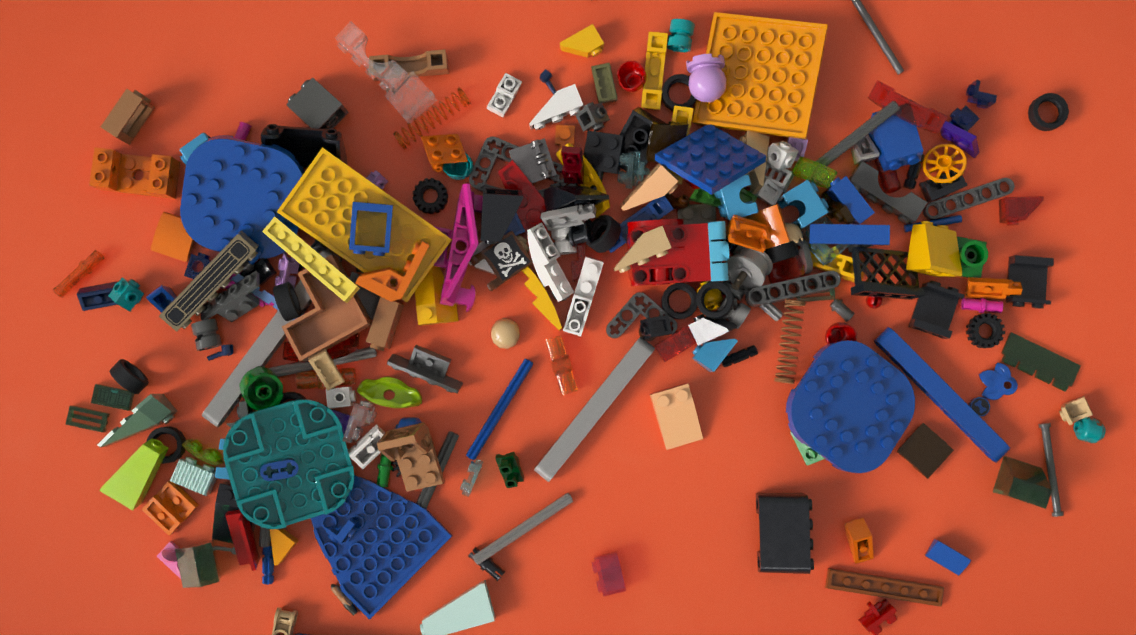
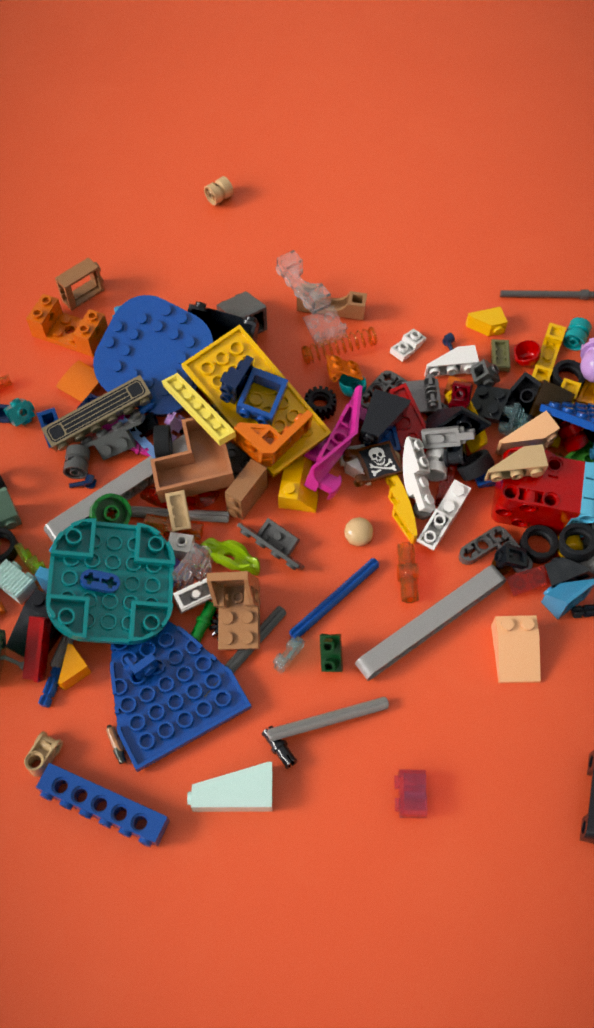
camera: 15 degrees right, 25 degrees down
(337, 227) = (235, 380): none -> dark blue plate

